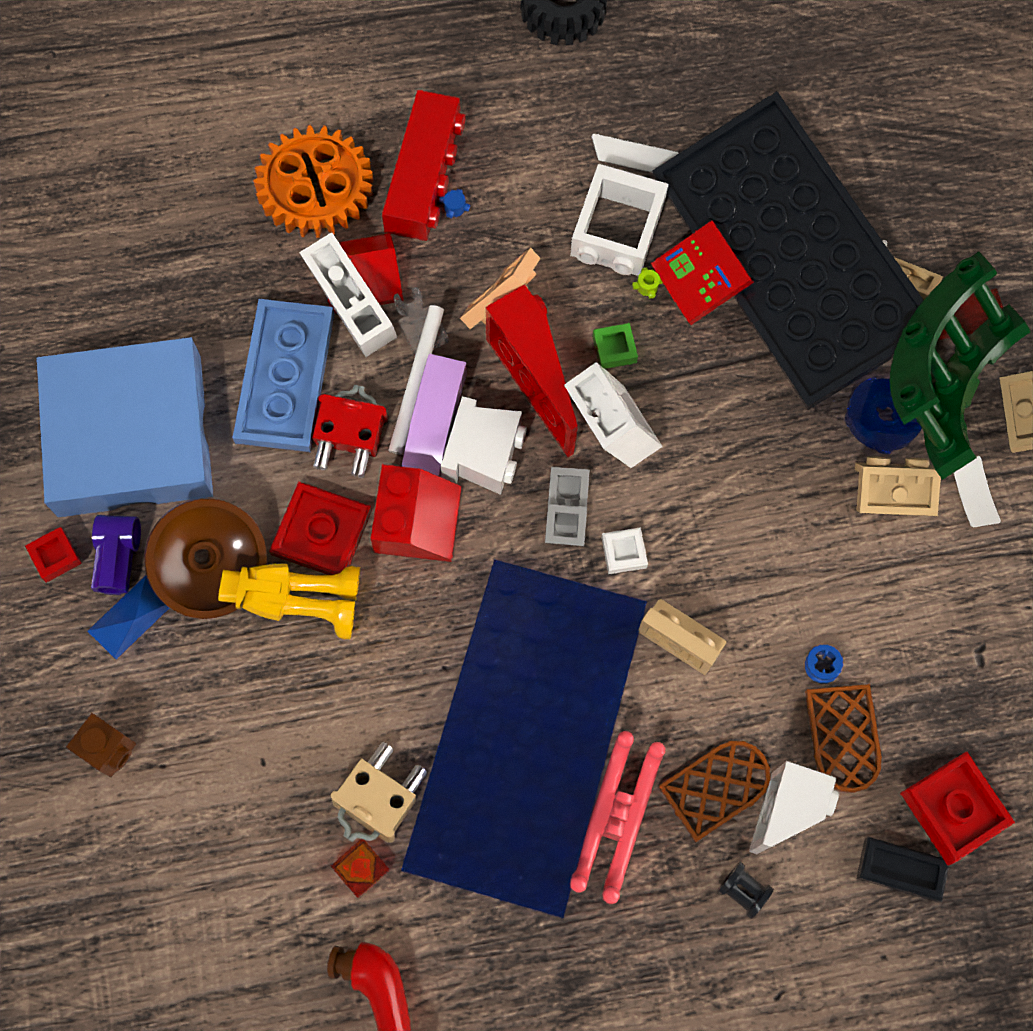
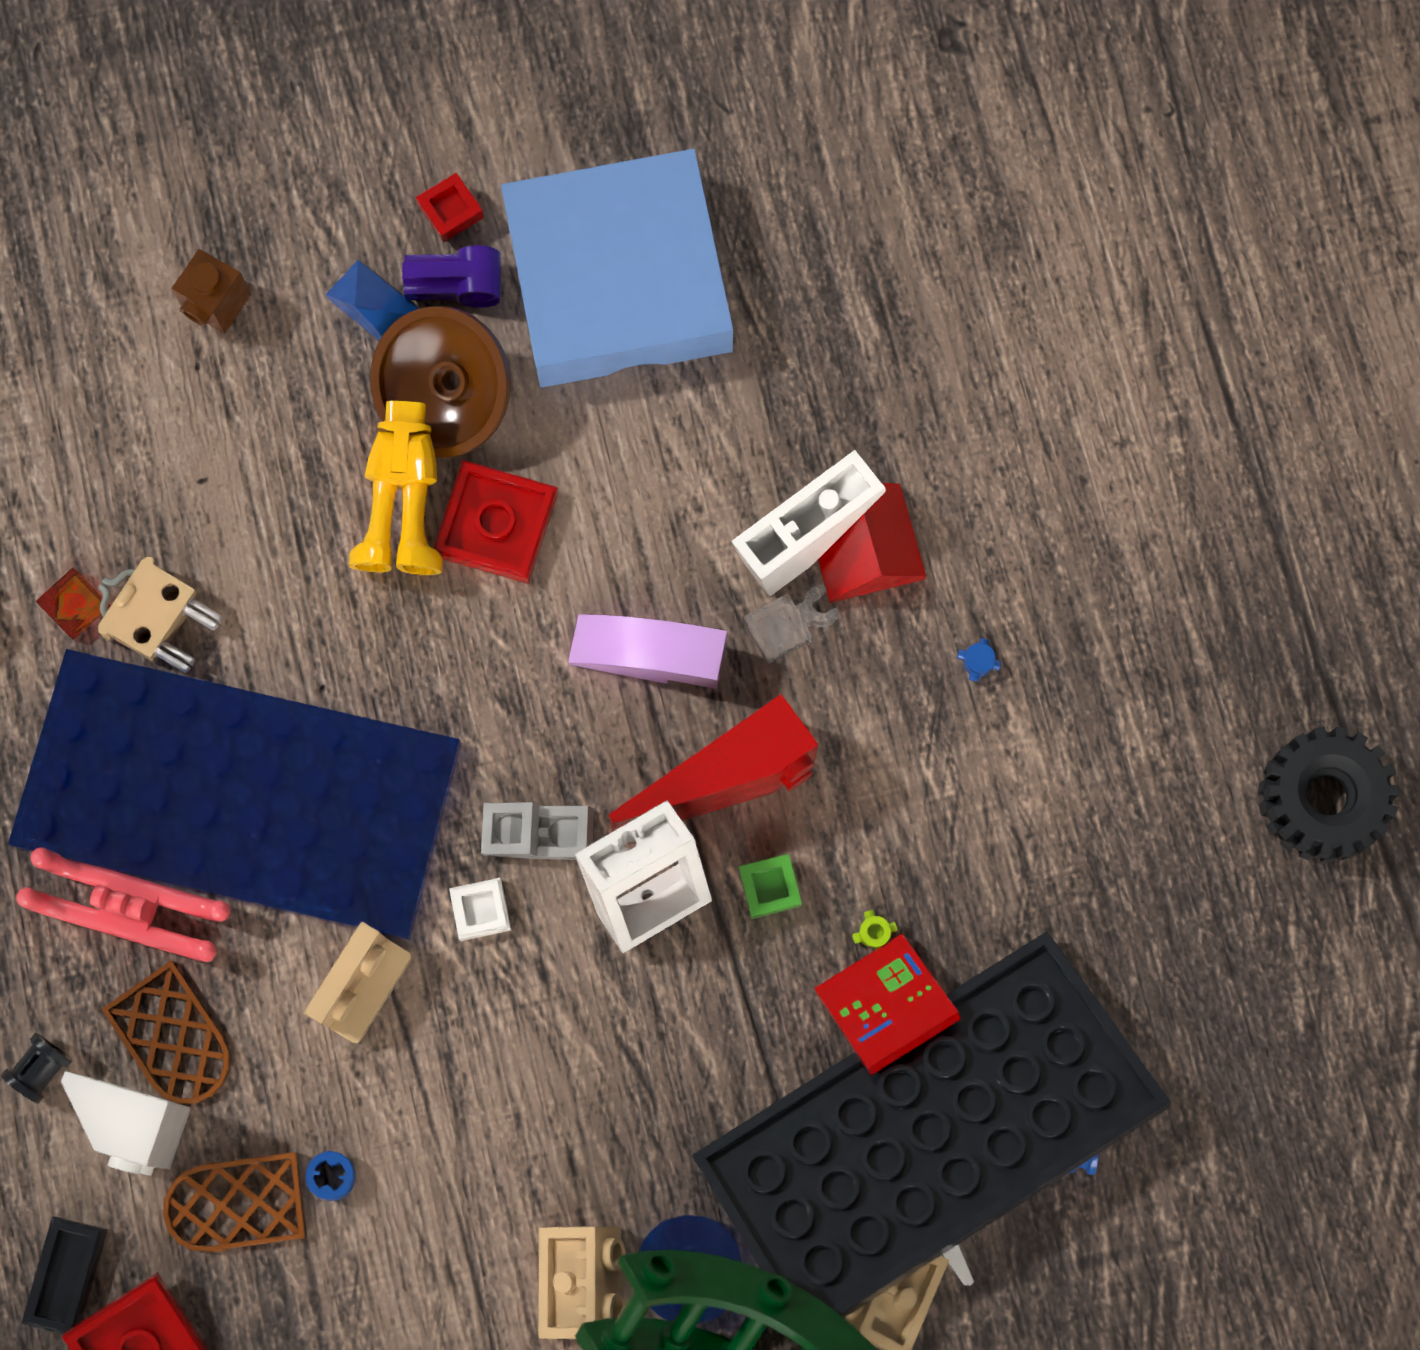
camera: 90 degrees right, 5 degrees up
(281, 191) = (972, 429): orange gear -> none
(284, 375) = (702, 455): medium blue plate -> none
(350, 423) = (637, 543): red piece -> none
(415, 514) = (514, 635): red slope -> none
(422, 166) = (1029, 611): red brick -> none
(424, 348) = (735, 627): white bar -> none
(483, 445) = (612, 715): white hips -> none
(514, 276) = (837, 732): light nougat plate -> none
(628, 190) = (1014, 899): white window -> none
(630, 153) = (1083, 908): white sticker -> none

